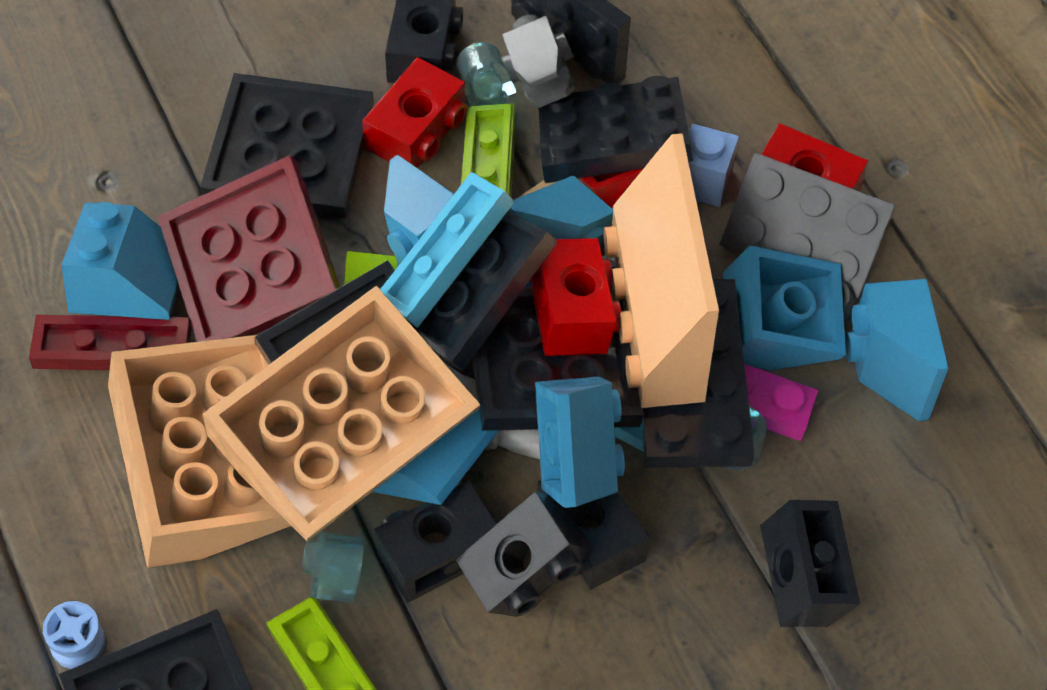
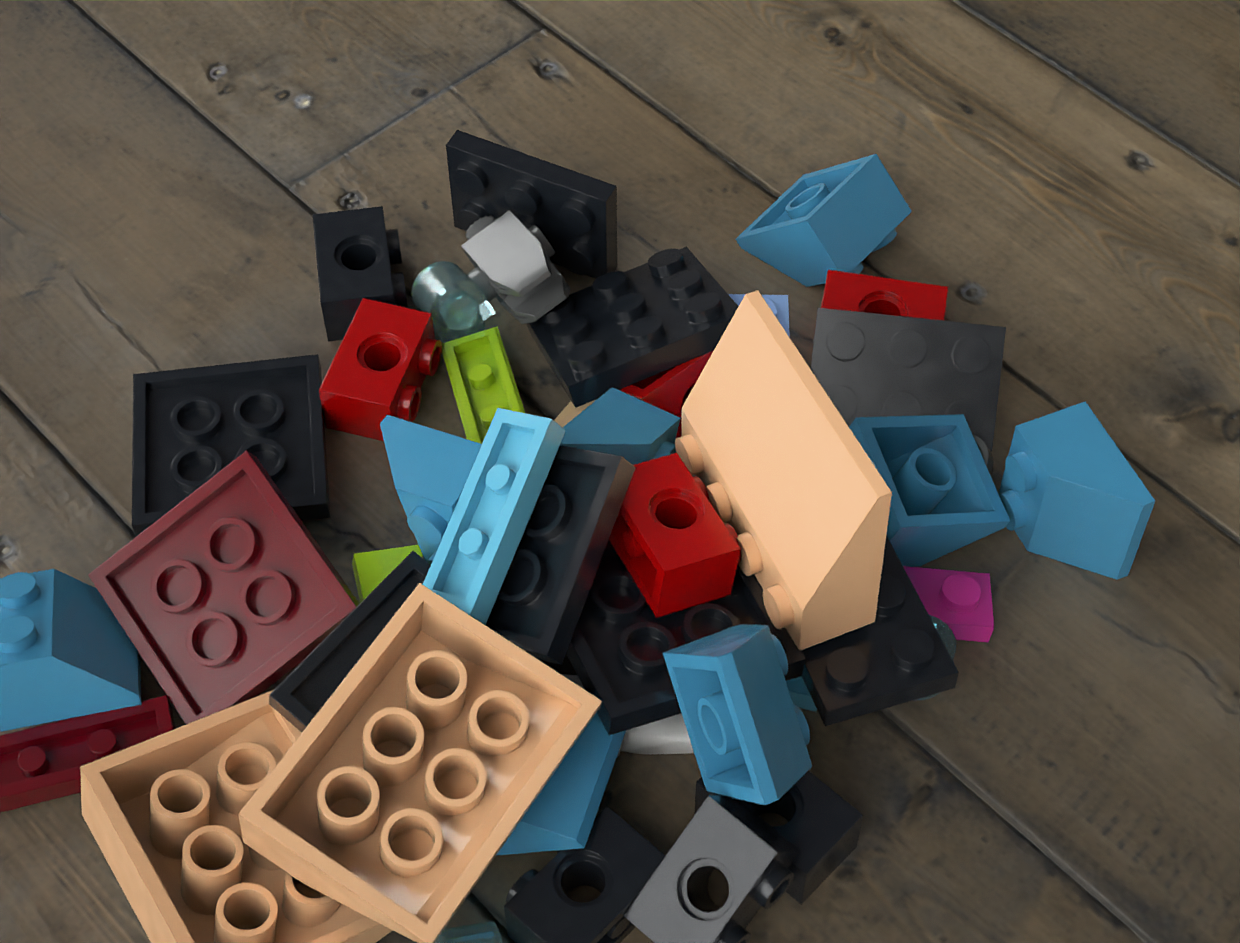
camera: 15 degrees left, 5 degrees down
(799, 83) = (828, 221): none -> dark azure slope
(809, 563) = (1070, 791): black brick -> none

